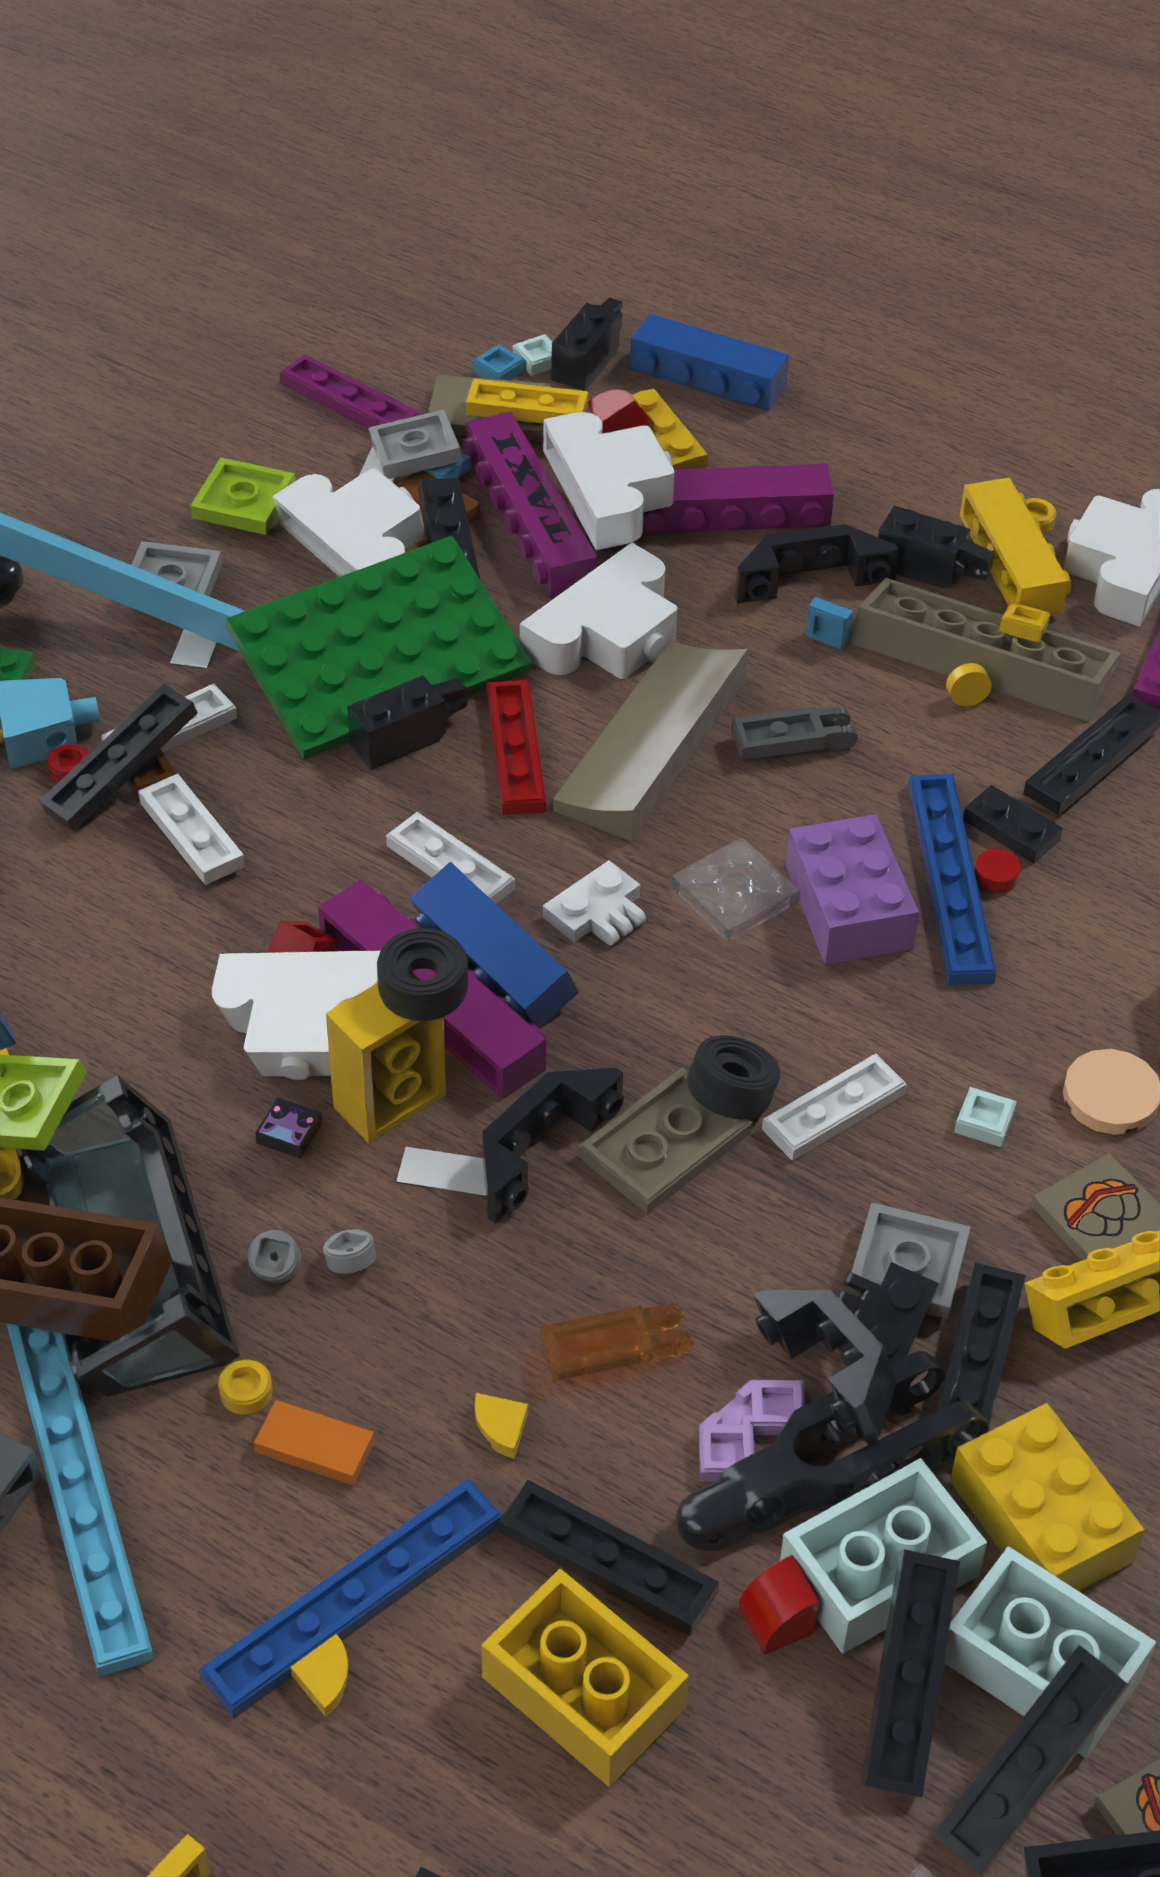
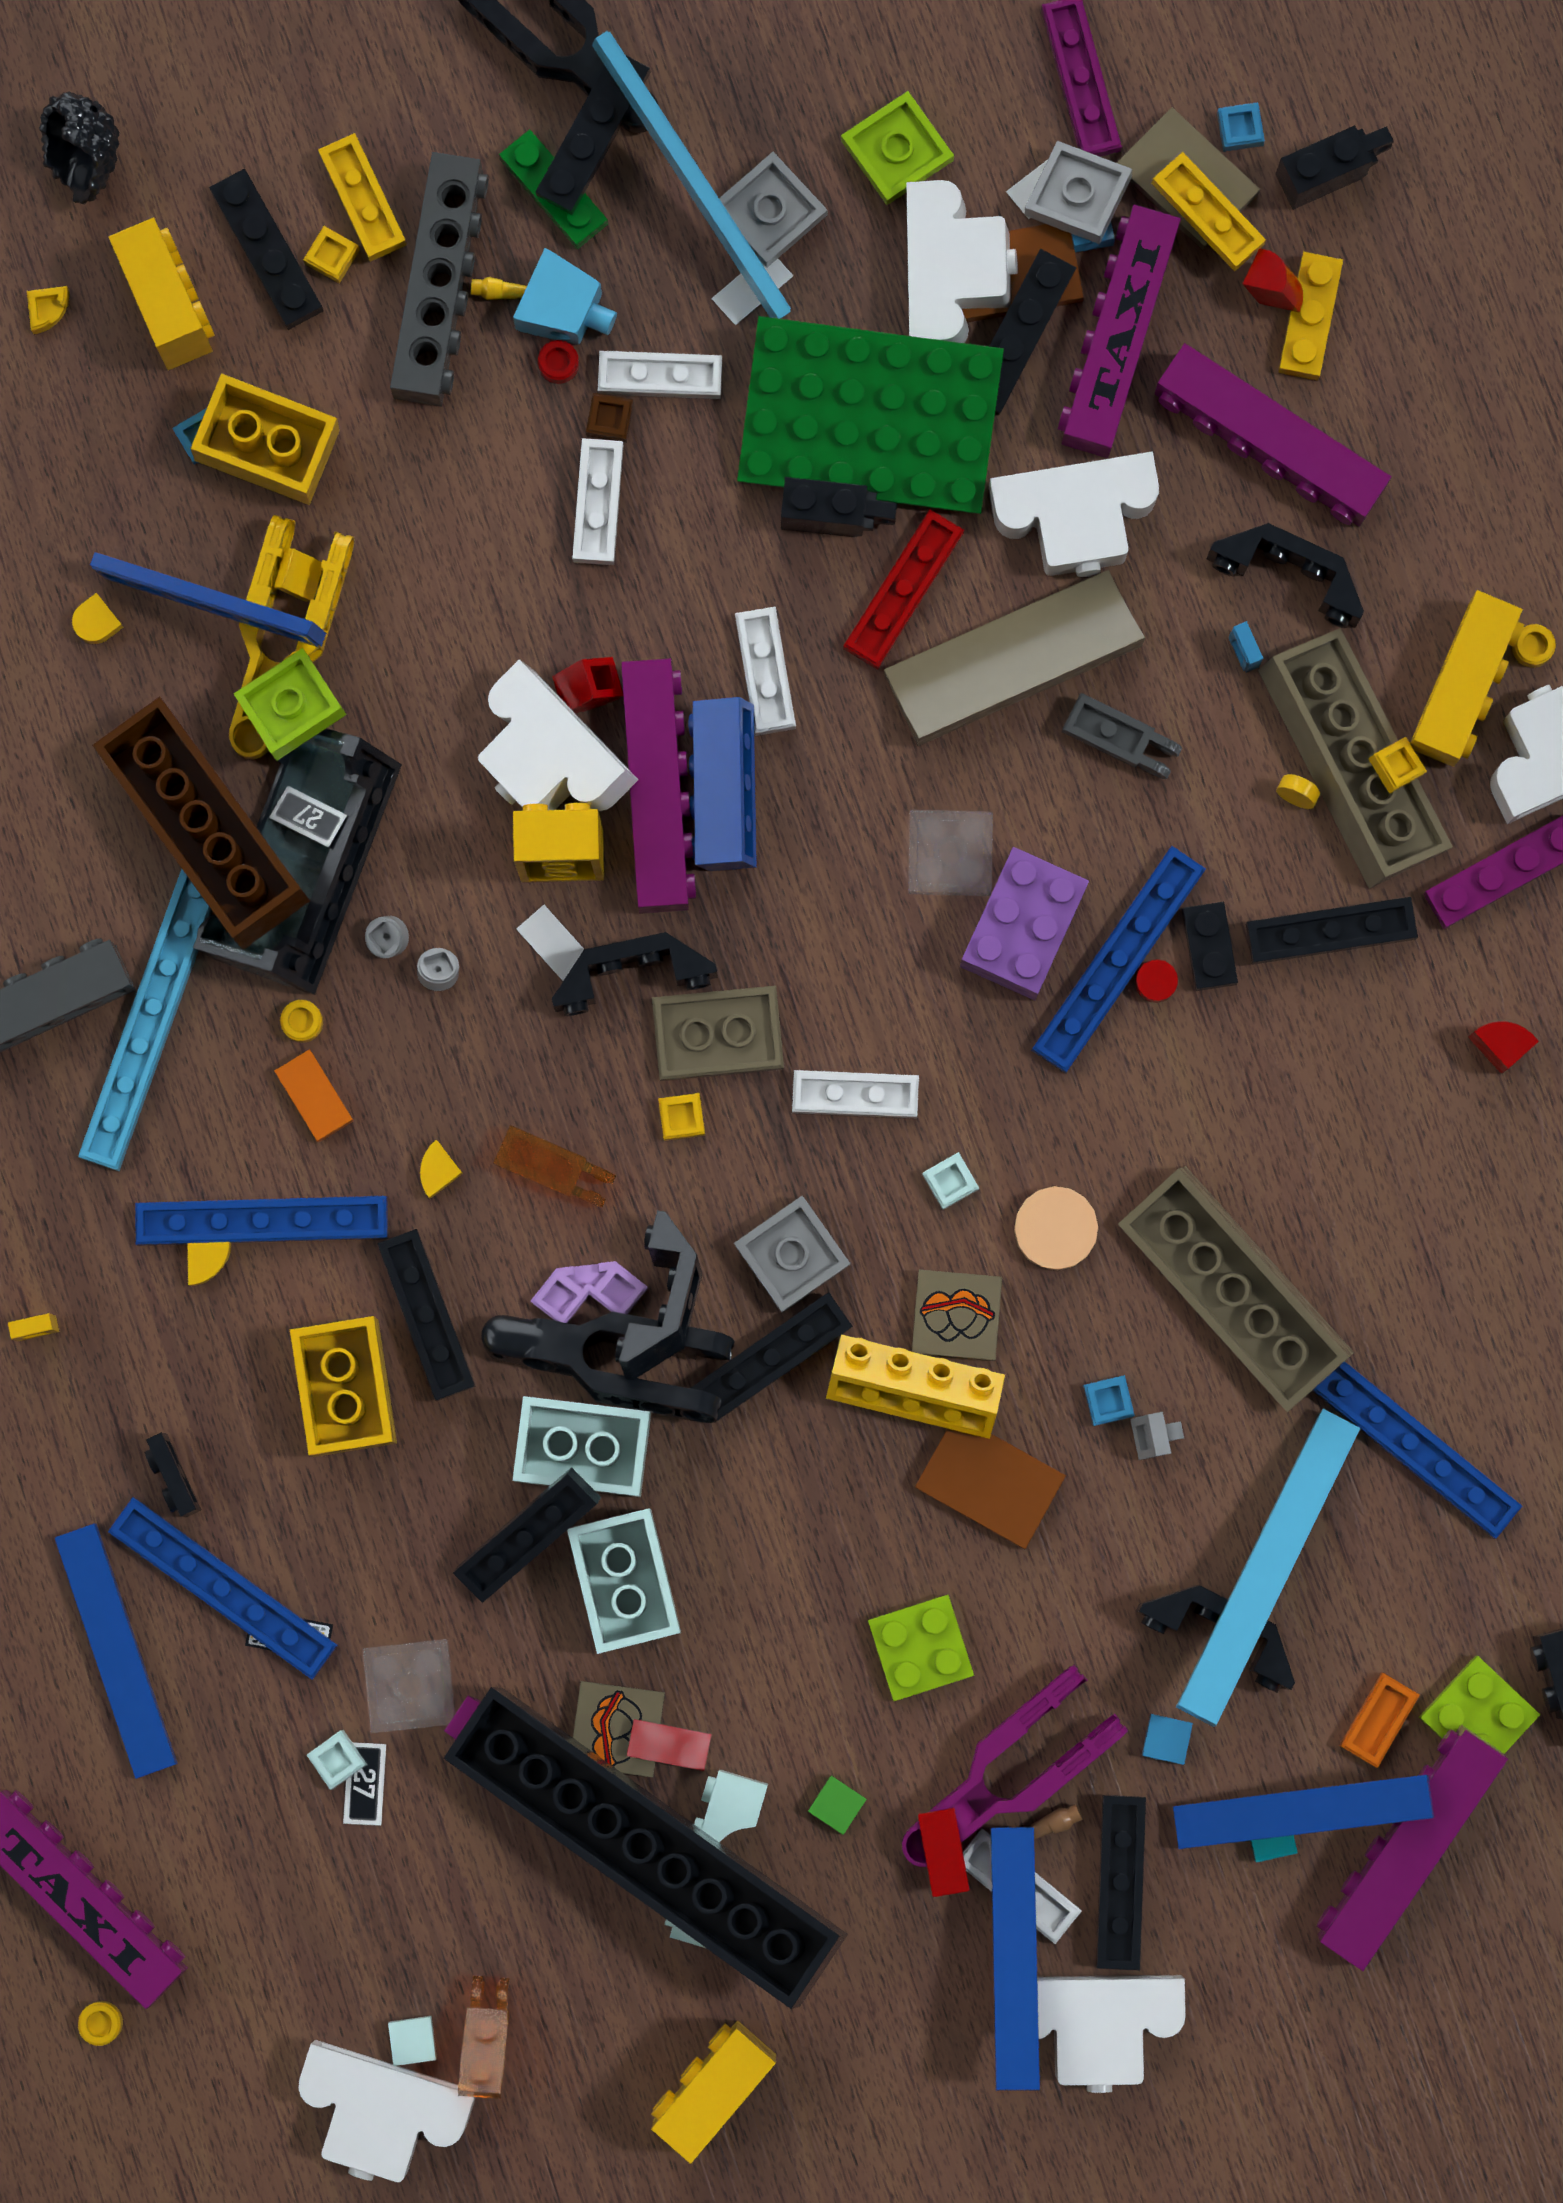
camera: 40 degrees right, 35 degrees up
(118, 757) = (588, 395): black plate -> none
(118, 1197) = (308, 816): none -> sticker
(288, 1127) = (474, 833): black tile -> none
(422, 998) = (589, 810): black tyre -> none
(536, 353) = (1284, 135): light aqua tile -> none
(597, 904) = (838, 792): white hinge -> none
(608, 475) = (1184, 371): white brick -> none
(696, 1225) = (681, 1117): none -> yellow tile
(709, 361) = (1415, 262): blue brick -> none
(733, 1077) = (818, 1021): black tyre -> none
(779, 1606) = (498, 1428): red brick -> none
(893, 1309) = (734, 1285): black hinge -> none
(934, 548) = (1398, 628): black hinge -> none
(1031, 1759) = (546, 1640): black plate -> none
(1046, 1499) = (714, 1489): yellow brick -> none

